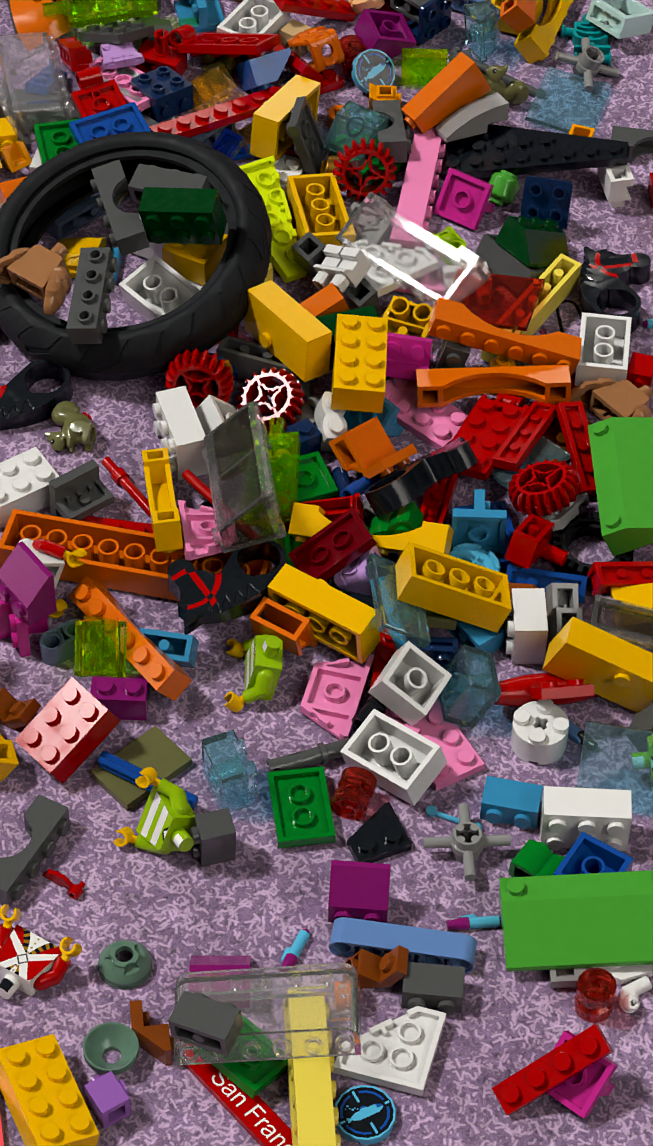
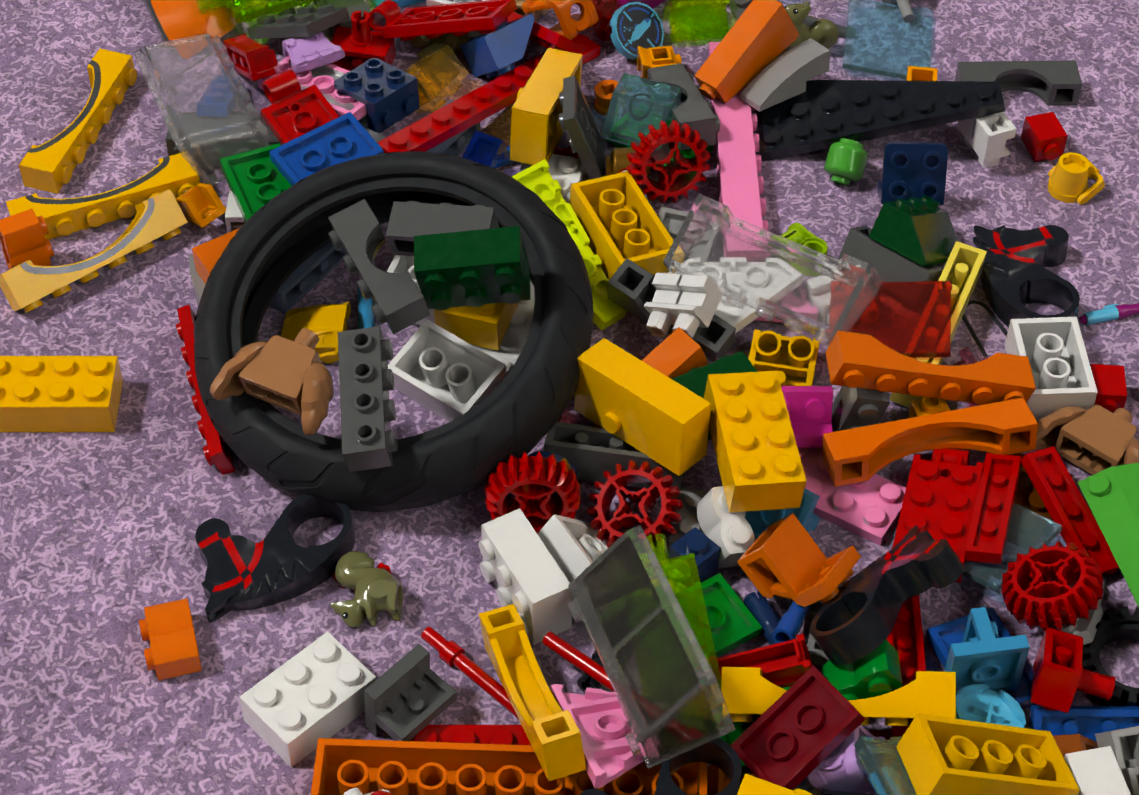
camera: 10 degrees left, 0 degrees up
(464, 199) = (803, 183): dark pink bracket -> none

